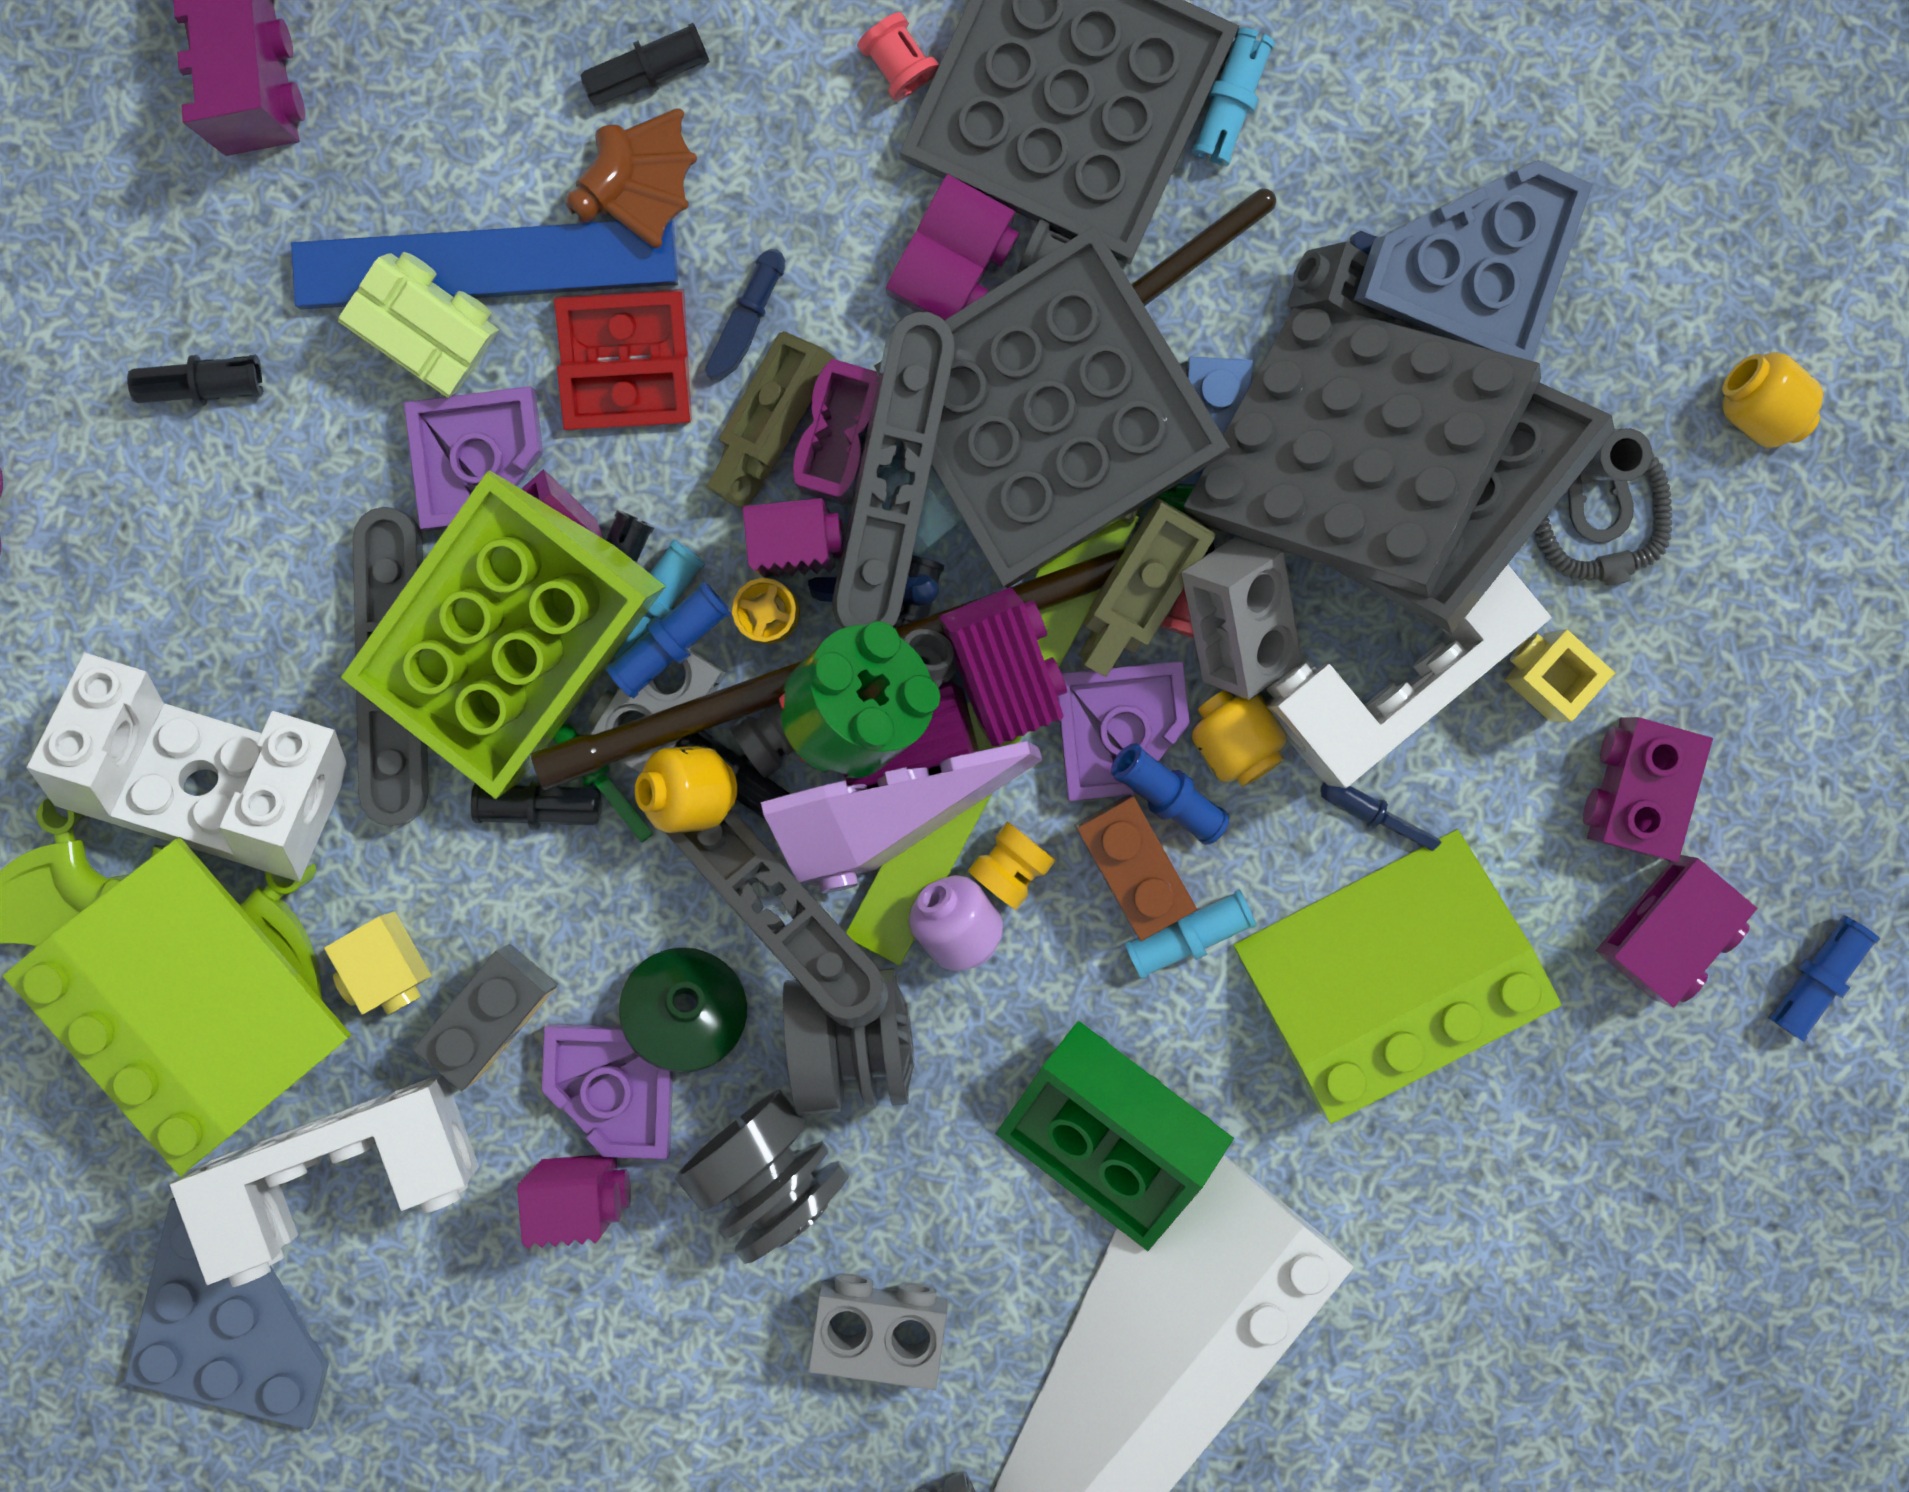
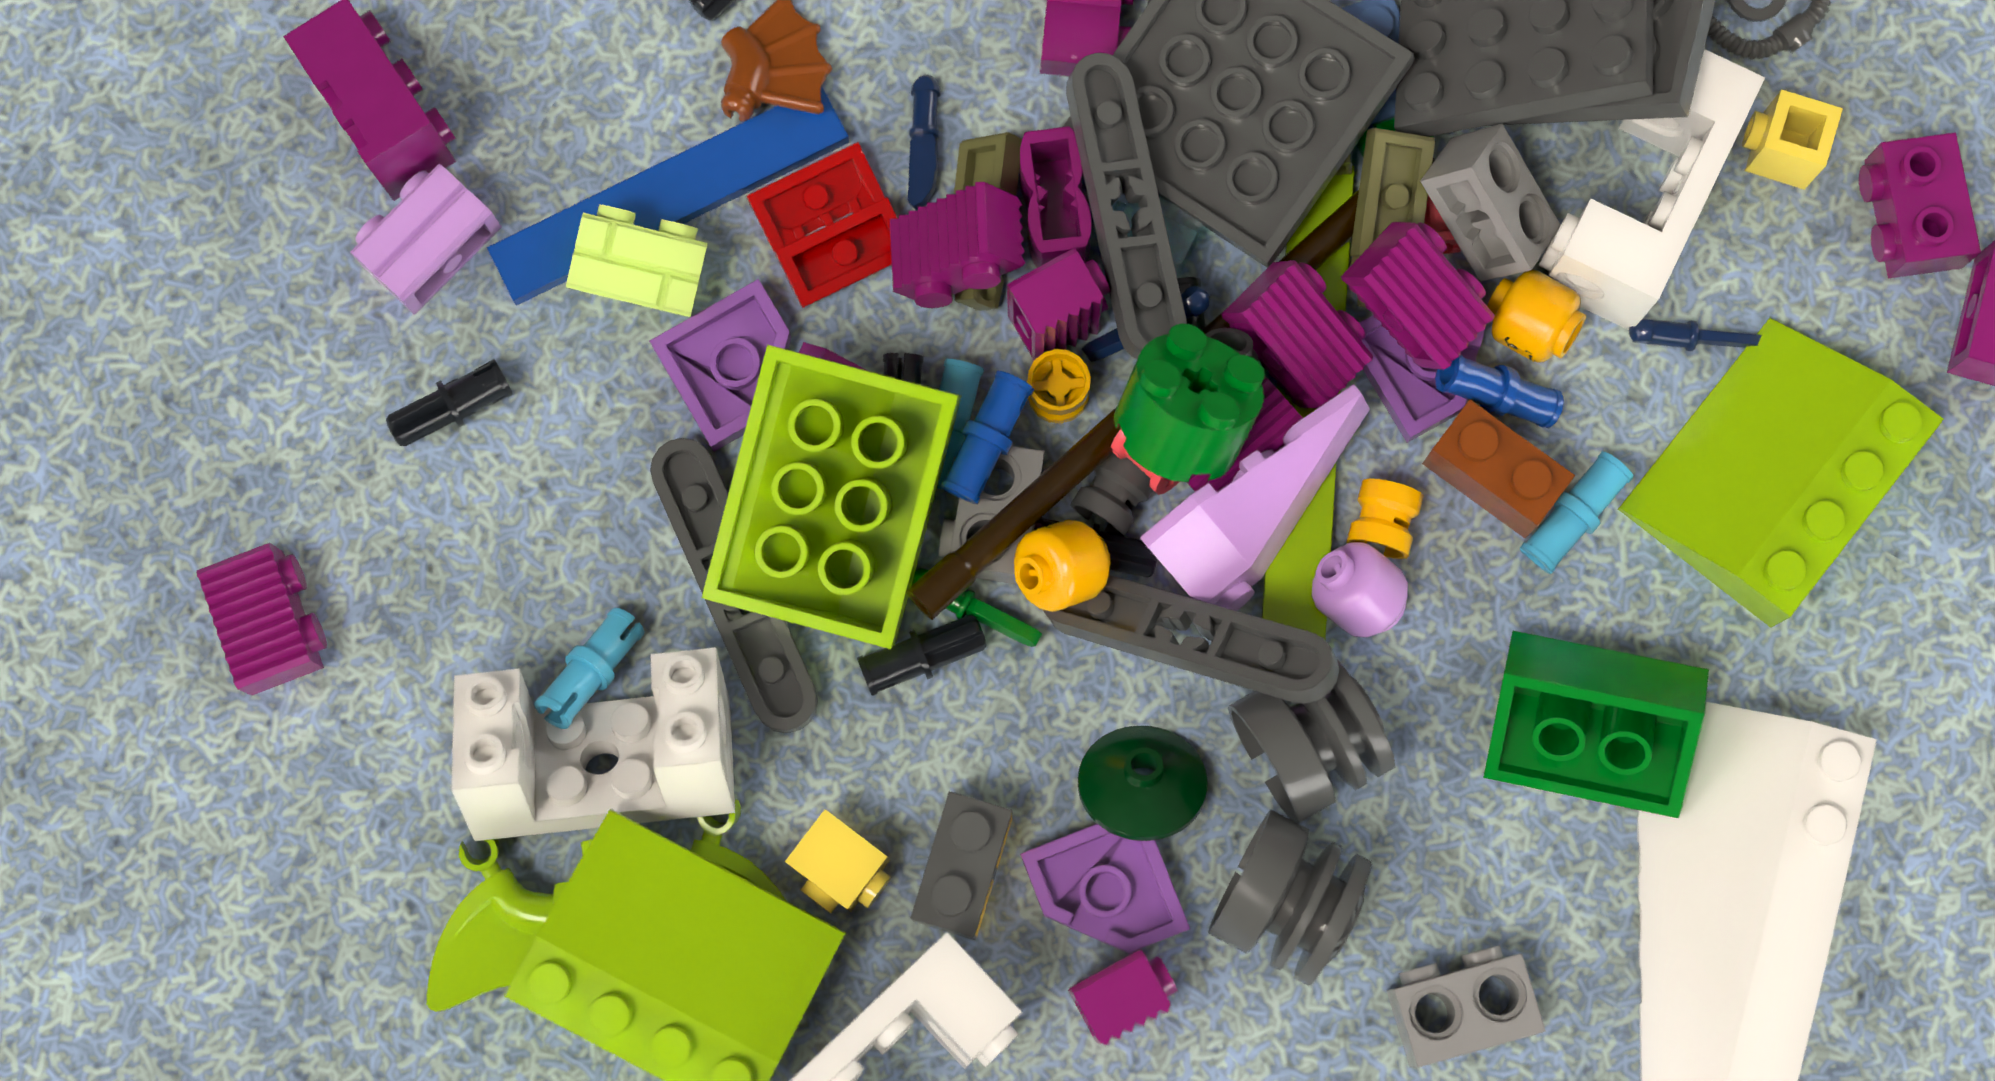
camera: 15 degrees left, 10 degrees down
(223, 690) = (589, 668): none -> medium azure pin
(233, 208) = (425, 237): none -> lavender brick
(722, 440) = (956, 245): none -> magenta brick
(1131, 679) = (1419, 294): none -> magenta brick

